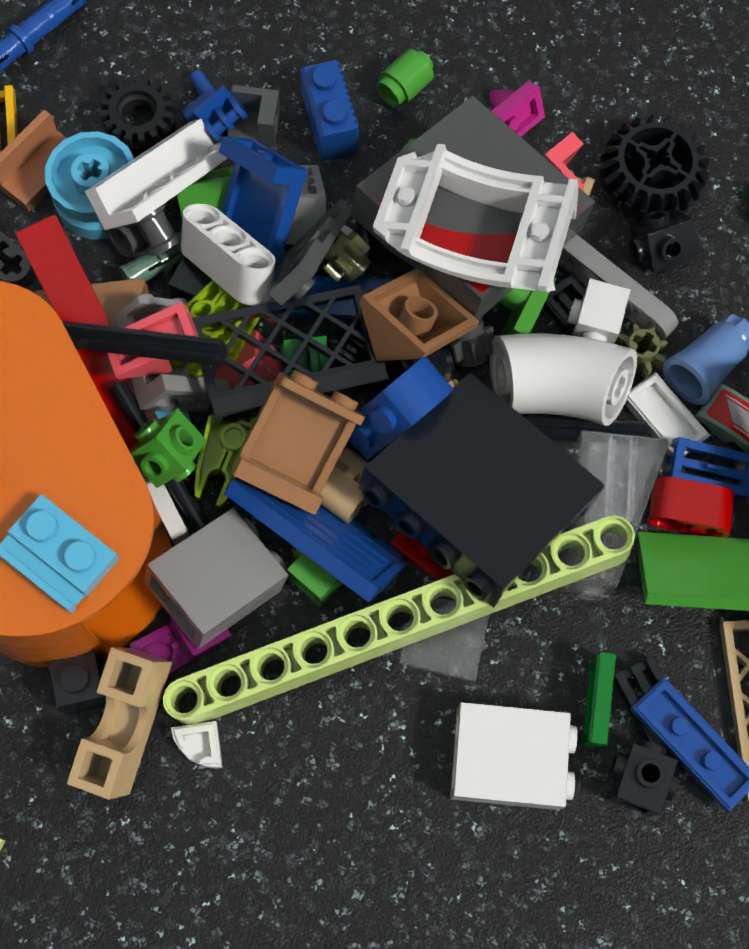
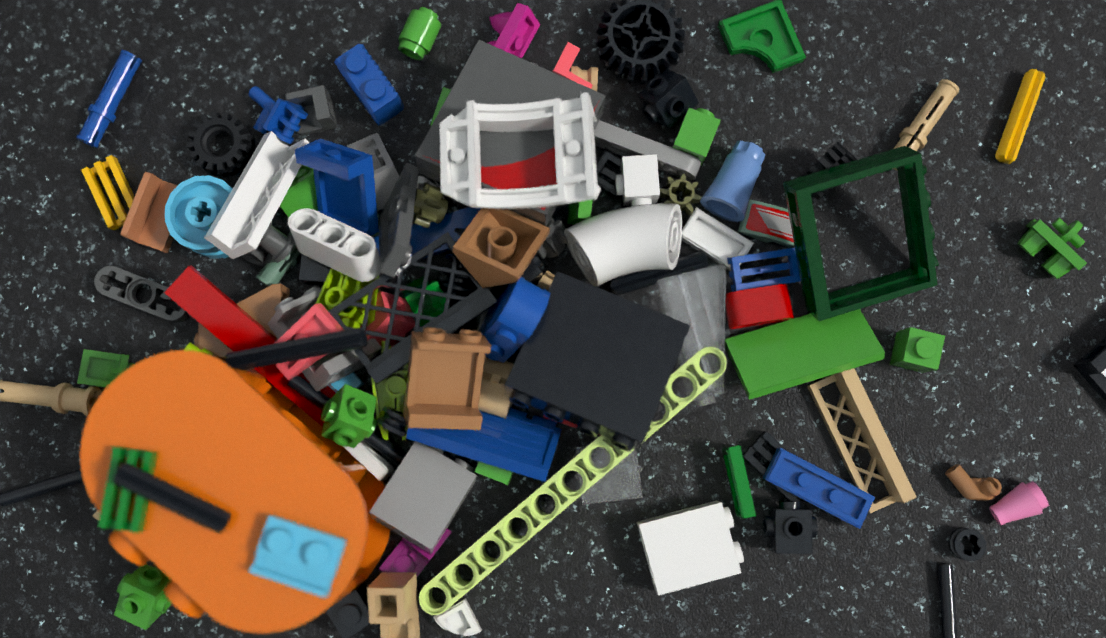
camera: 10 degrees left, 10 degrees up
(216, 472) = (393, 421): none -> black bush
(685, 288) = (697, 133): none -> bright green brick

